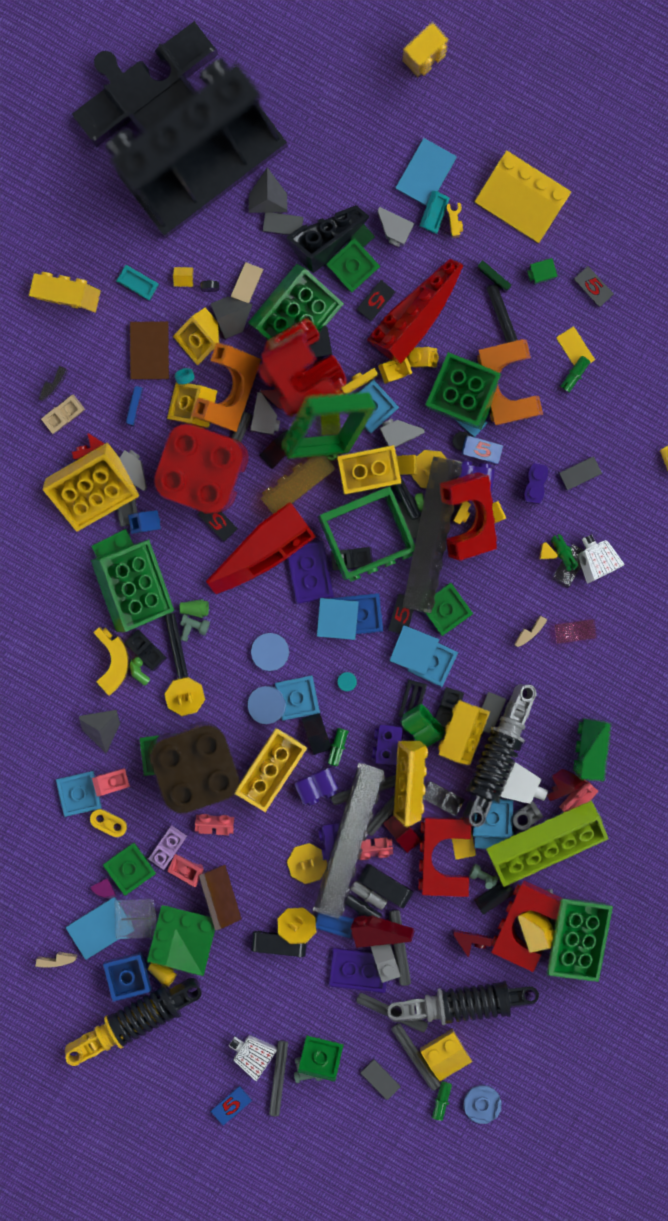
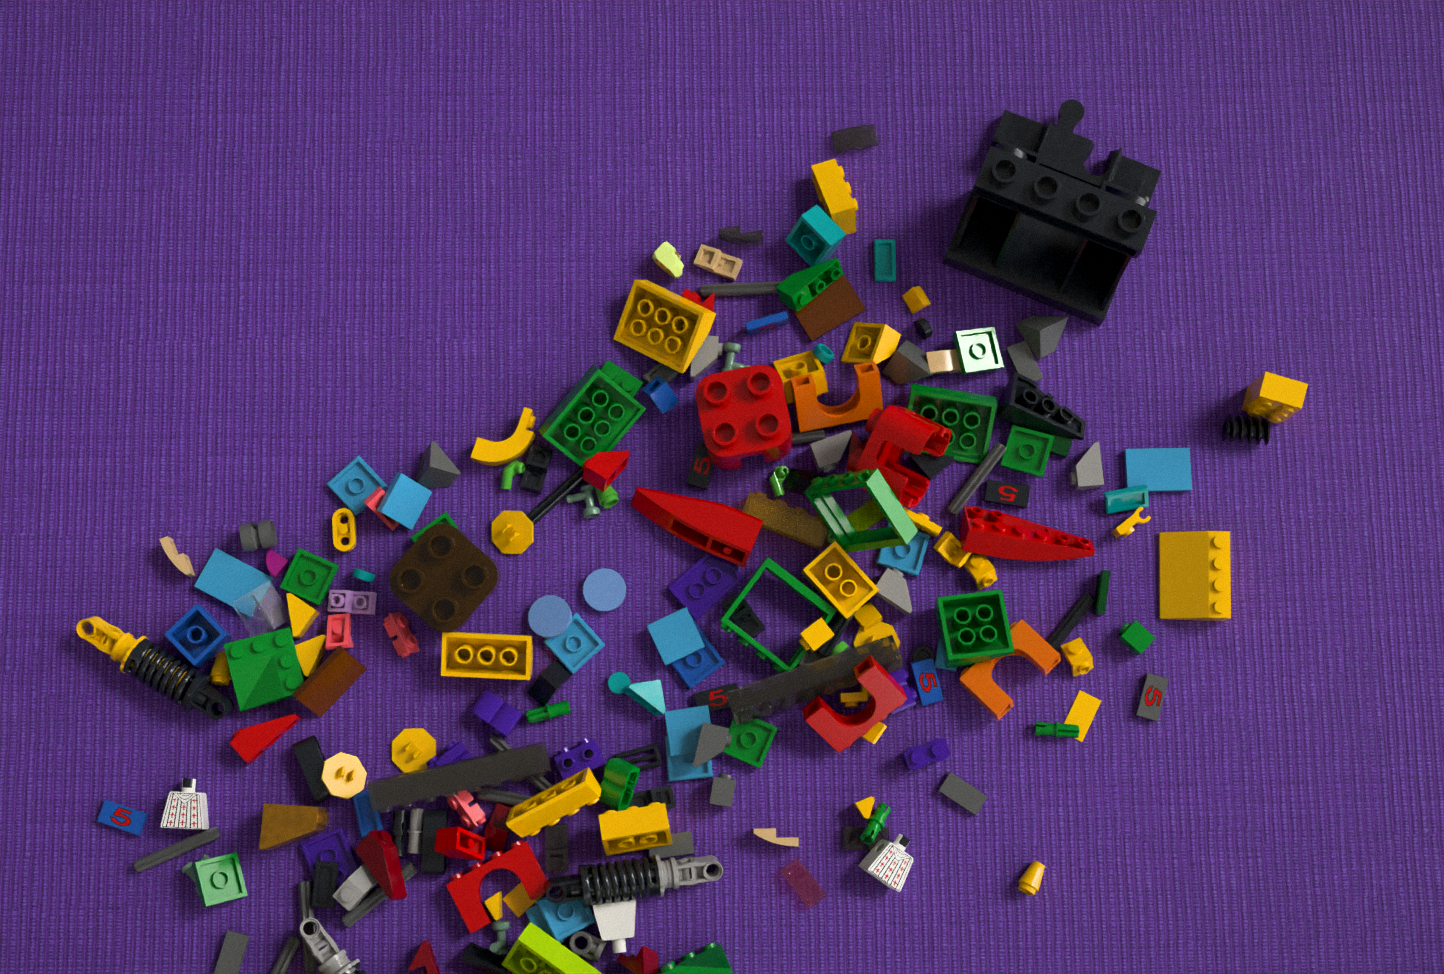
camera: 50 degrees right, 10 degrees down
(25, 246) = (854, 138): none -> clear smoke slope
(39, 451) = (668, 260): none -> yellowish green rock
(75, 890) = (258, 535): none -> dark grey wheel
(89, 327) = (815, 236): none -> teal brick
(95, 408) = (736, 289): none -> dark grey axle
(113, 765) = (404, 500): none -> dark azure tile
(122, 358) = (805, 285): none -> green slope
(151, 453) = (732, 349): none -> sand green piece
(152, 827) = (363, 575): none -> teal tile
(155, 891) = (300, 615): none -> yellow slope
(177, 598) = (604, 468): none -> red slope
(189, 900) = (311, 653): none -> yellow slope
(231, 976) = (258, 738): none -> red slope
(252, 254) = (978, 350): none -> plate
(261, 470) = (776, 480): none -> bright green arm
(309, 984) = (290, 823): none -> pearl gold slope
(351, 317) = (976, 478): none -> dark grey axle
(369, 983) = (325, 884): none -> black tile
(370, 665) = (648, 695): none -> slope
(398, 868) = (460, 843): none -> red slope
(400, 514) = (815, 635): none -> yellow brick
(434, 640) = (711, 743): none -> dark grey slope
(435, 85) = (1246, 428): none -> black piece
(458, 868) = (494, 905): none -> yellow slope
(473, 651) = (722, 790): none -> dark grey brick
(531, 324) = (1077, 656): none -> yellow bracket

